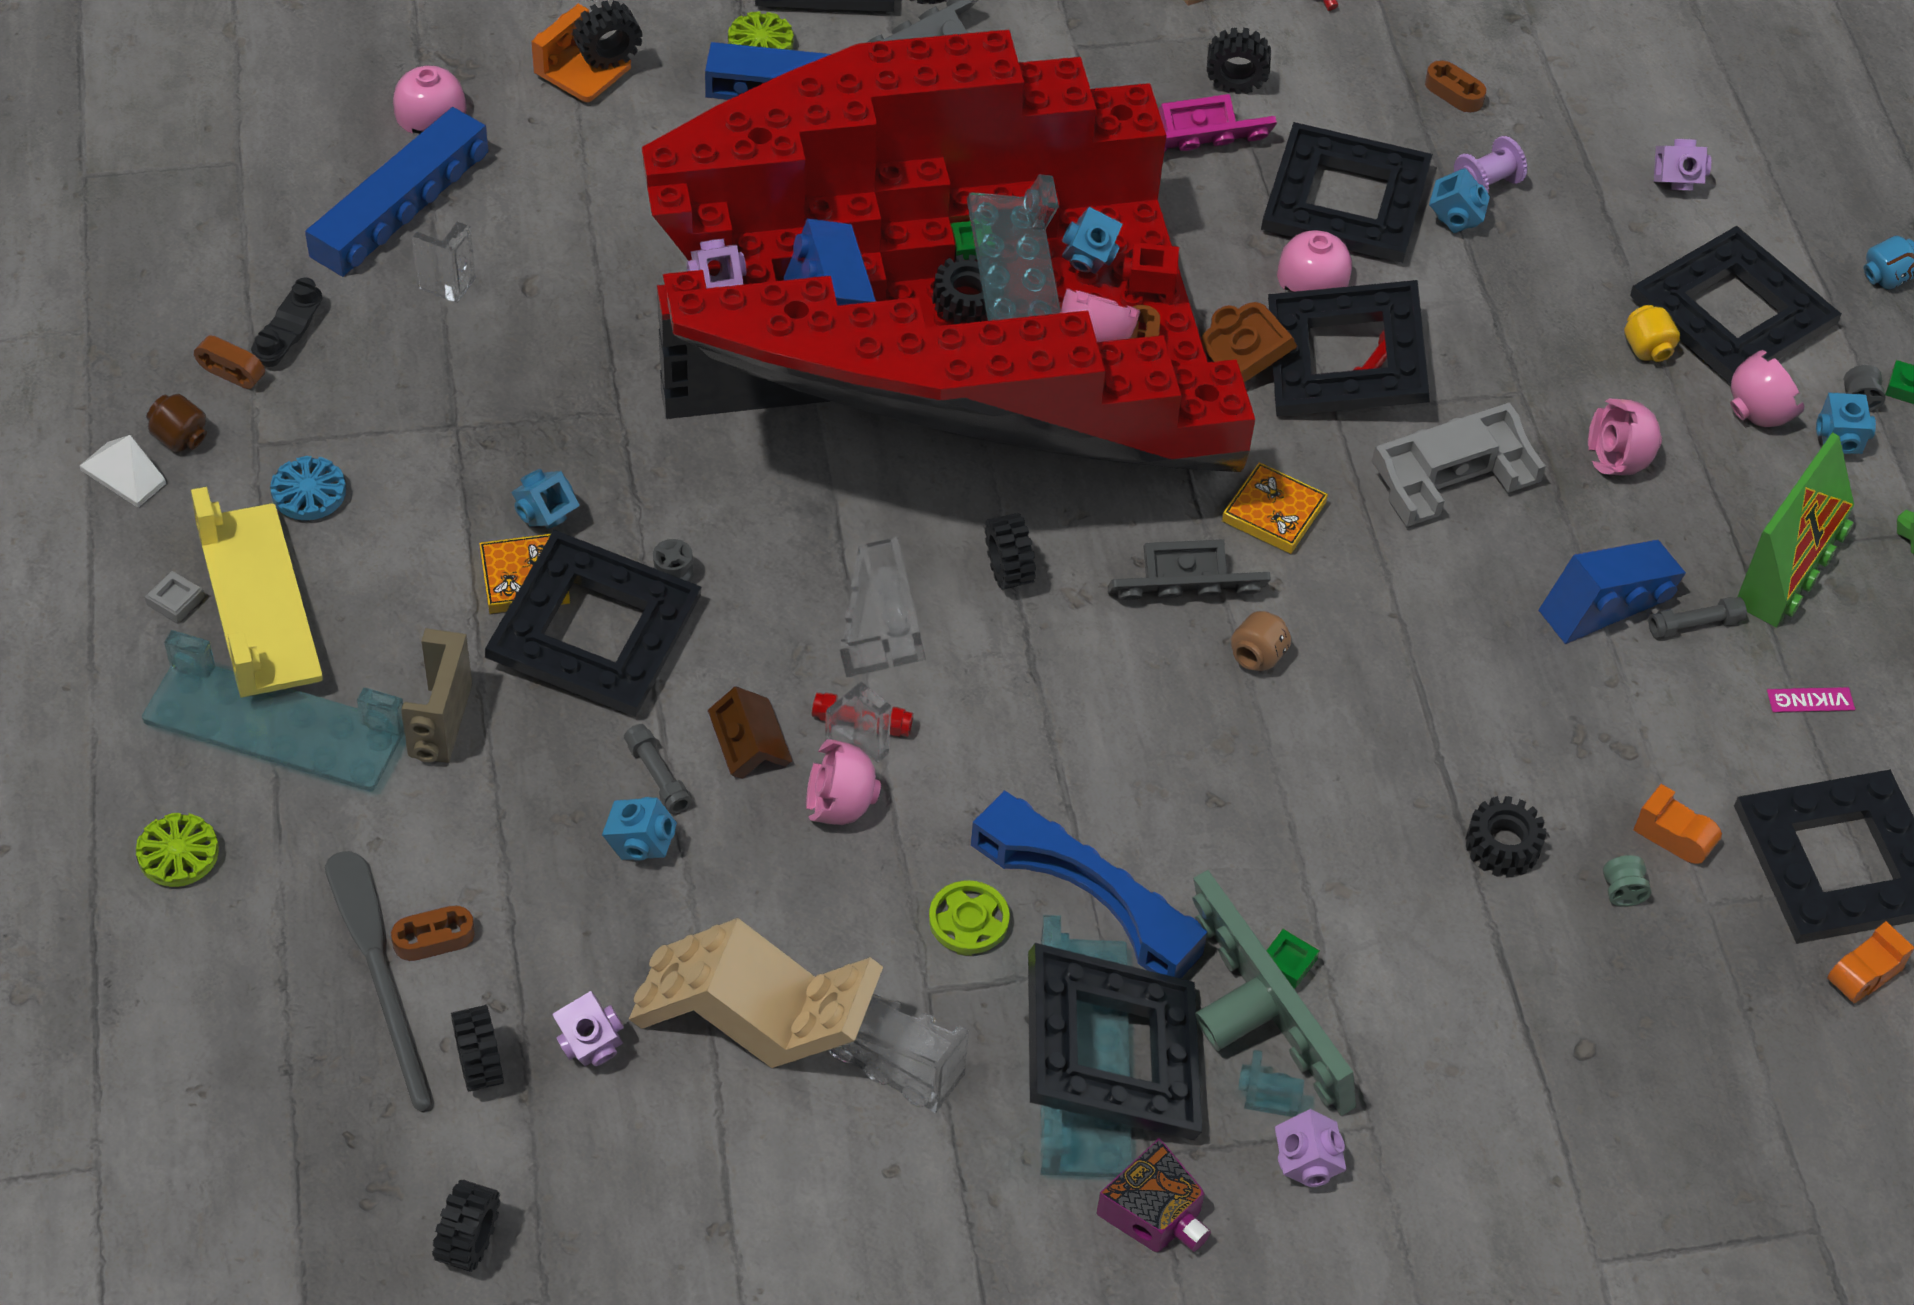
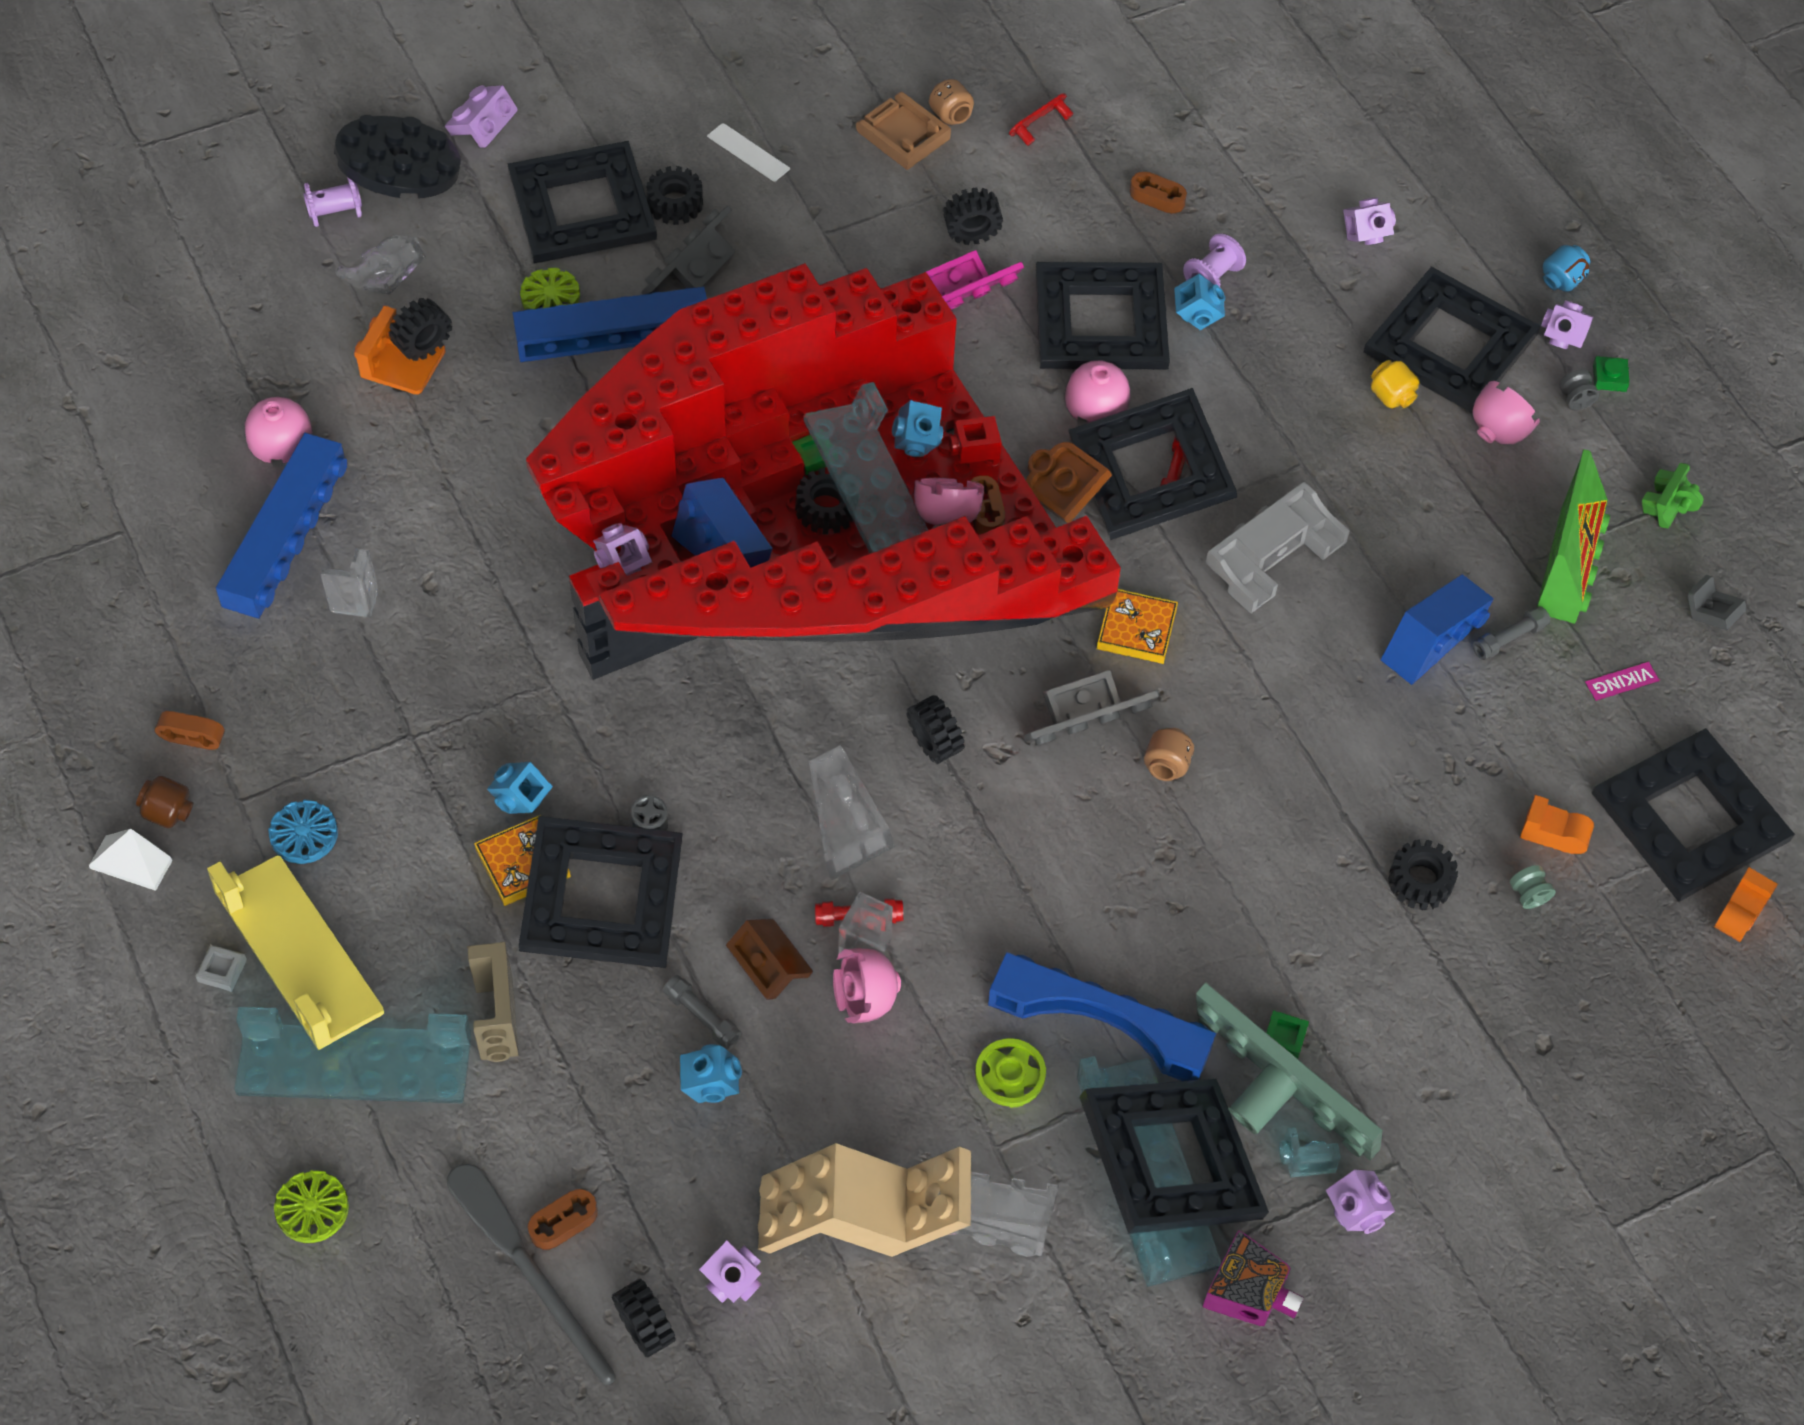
camera: 15 degrees left, 5 degrees up
(289, 322) = (228, 678): black piece -> none
(1624, 437) = (1403, 487): bright pink cylinder -> none
(1852, 428) = (1575, 426): dark azure brick -> none
(1881, 328) = (1579, 325): none -> lavender brick

